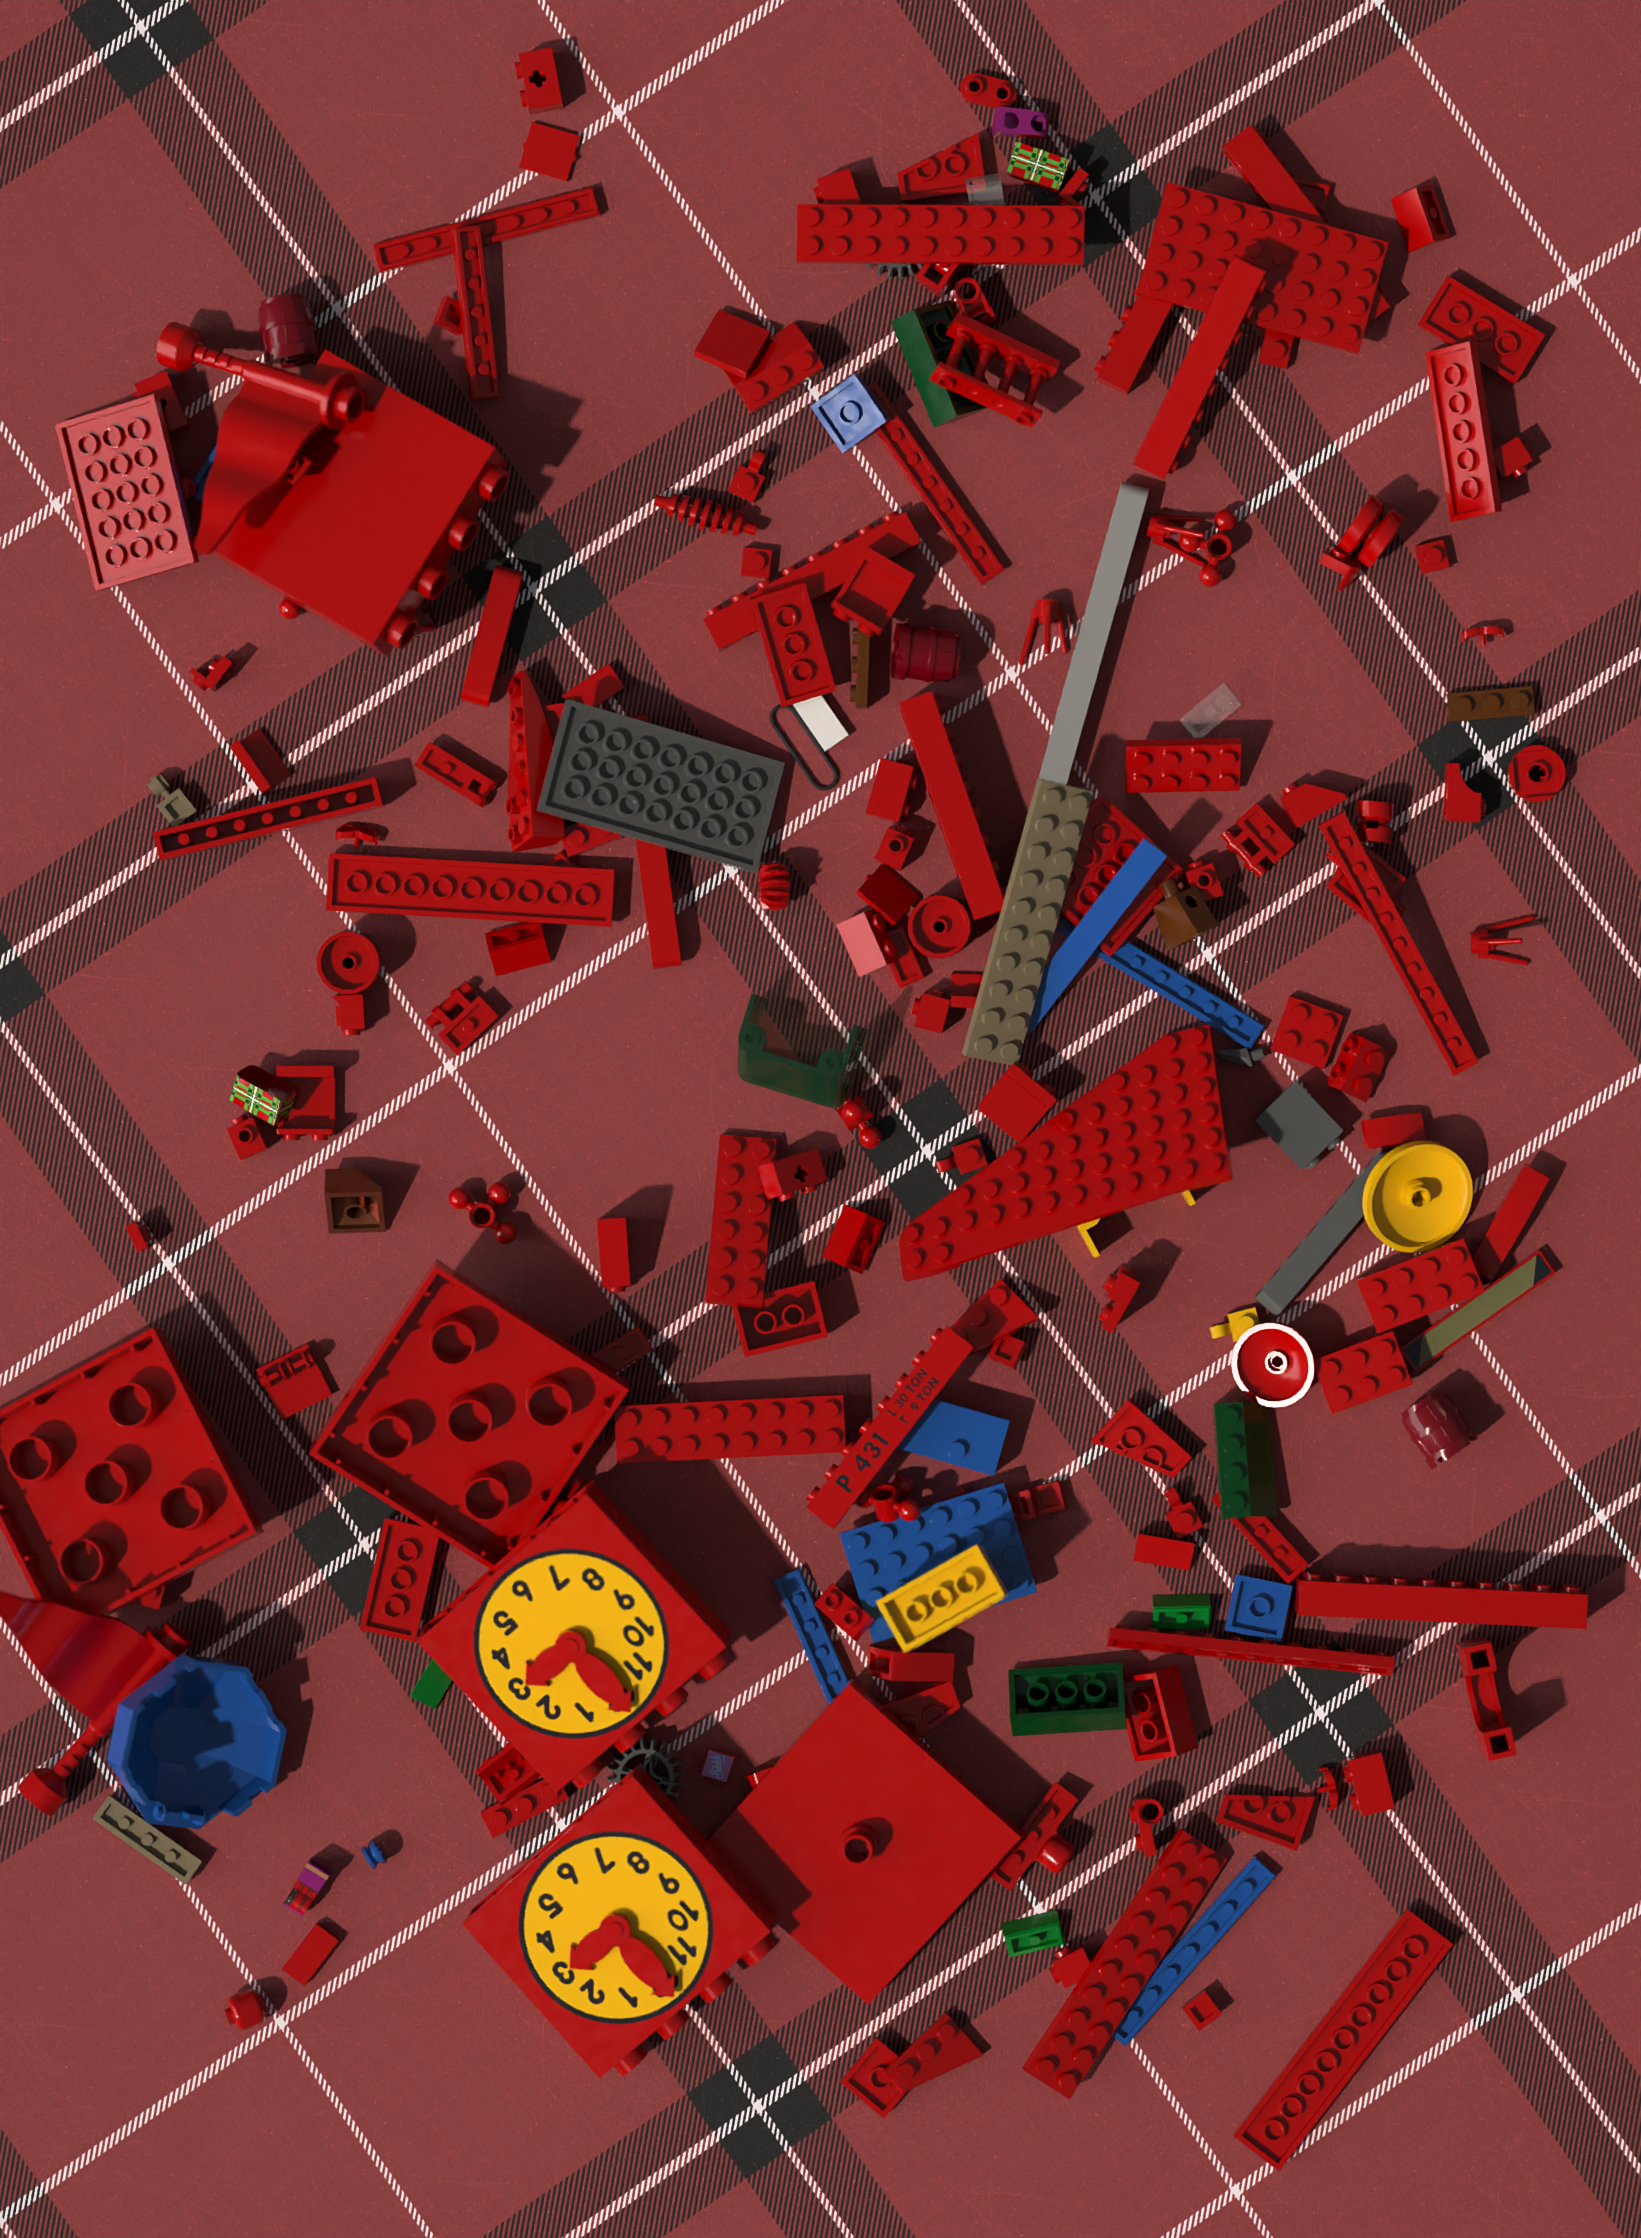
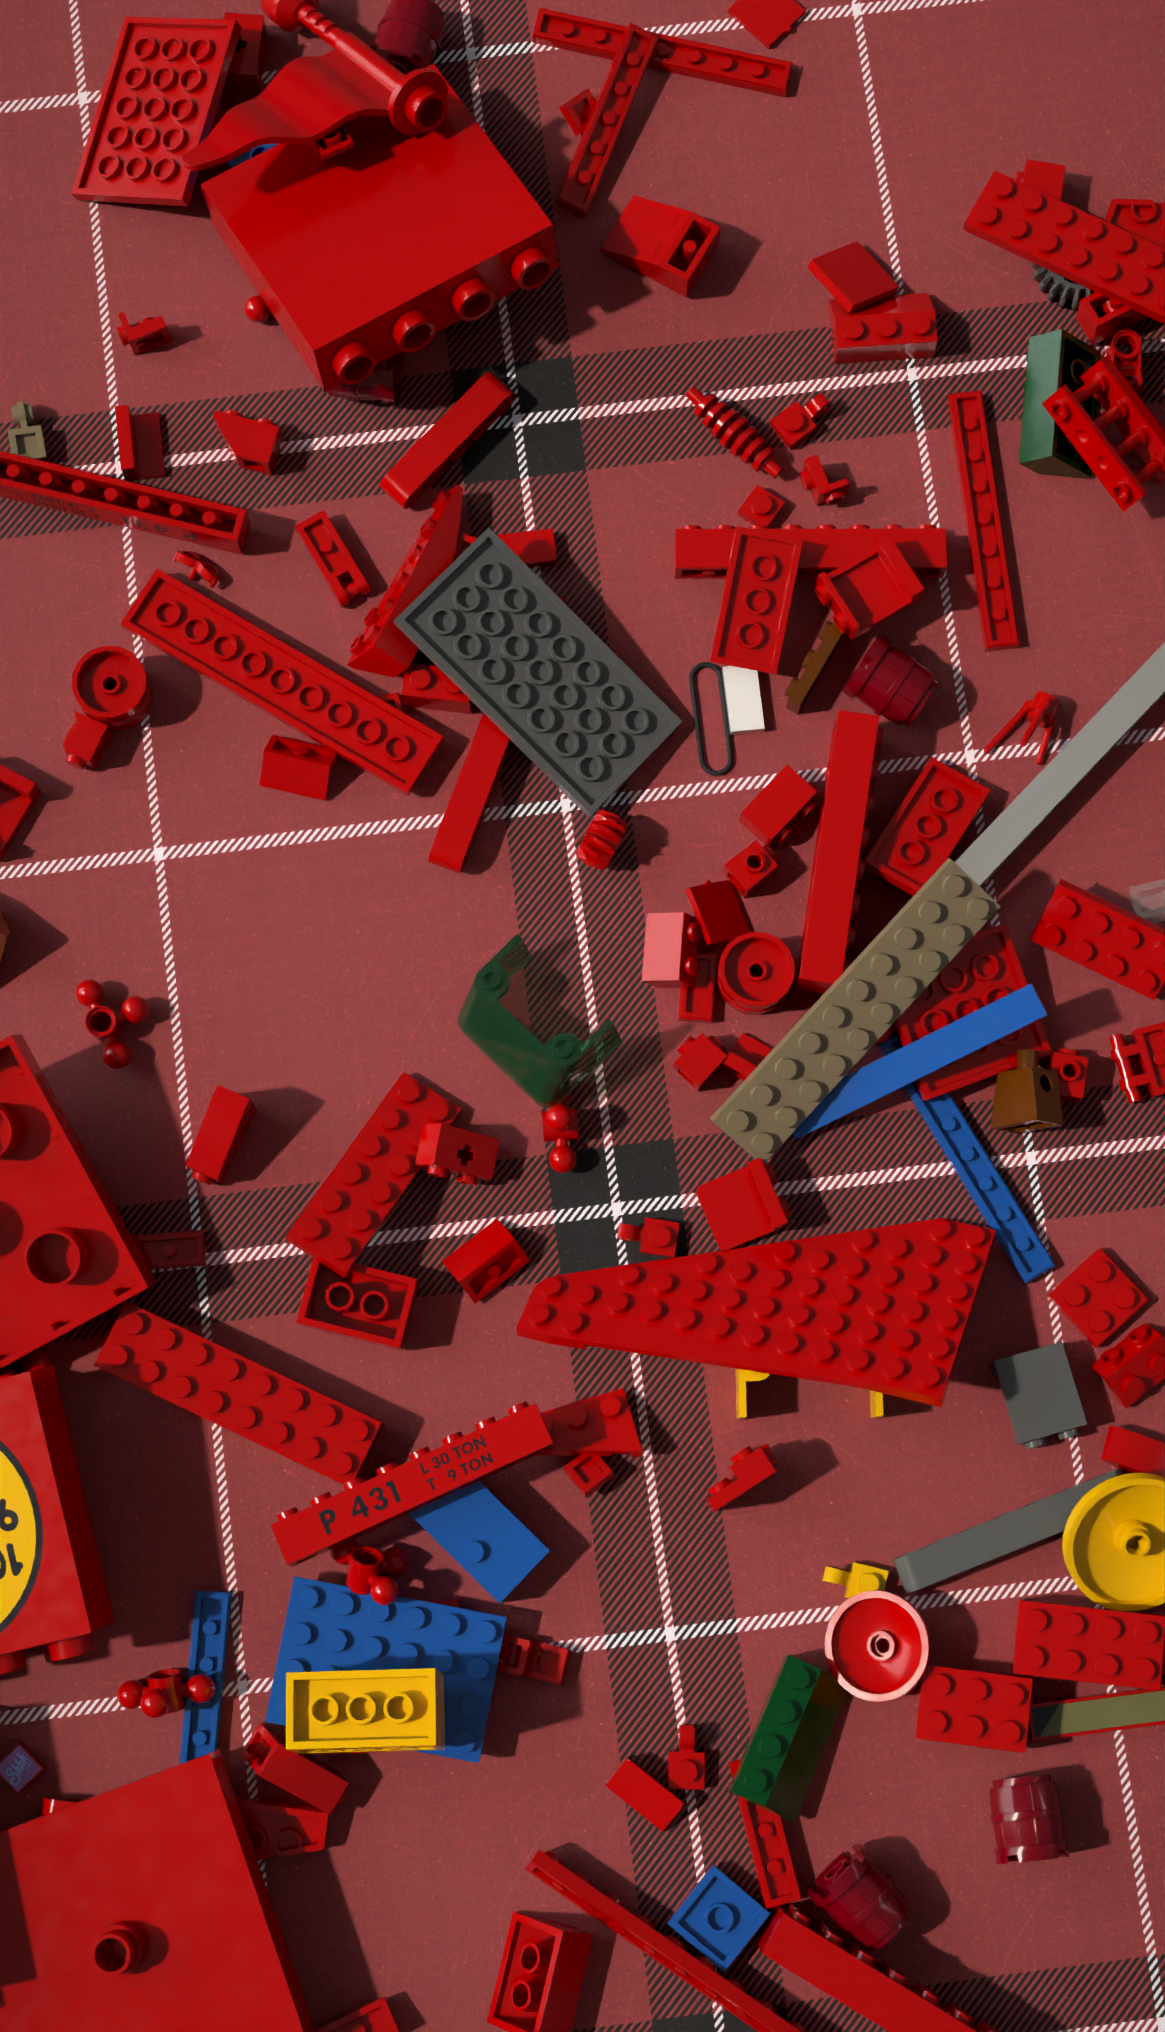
camera: 30 degrees right, 10 degrees down
(344, 717) = (250, 441): none -> red slope
(468, 1024) = (202, 817): red plate -> none
(570, 392) = (663, 243): none -> red slope
(785, 521) = (815, 480): none -> red bracket
(791, 1660) = (165, 1692): none -> red piece
(844, 1611) = (252, 1668): red plate -> none
(850, 413) = (939, 405): plate -> none
(1008, 750) = (926, 826): none -> red plate
(1067, 1699) = (447, 1906): dark green slope -> none
(1142, 1439) = (686, 1652): red wing -> none
(1181, 1611) = (629, 1875): green slope -> none
(1242, 1056) = (1013, 1286): dark grey bar -> none
(1350, 1543) = (861, 1899): none -> dark red piece

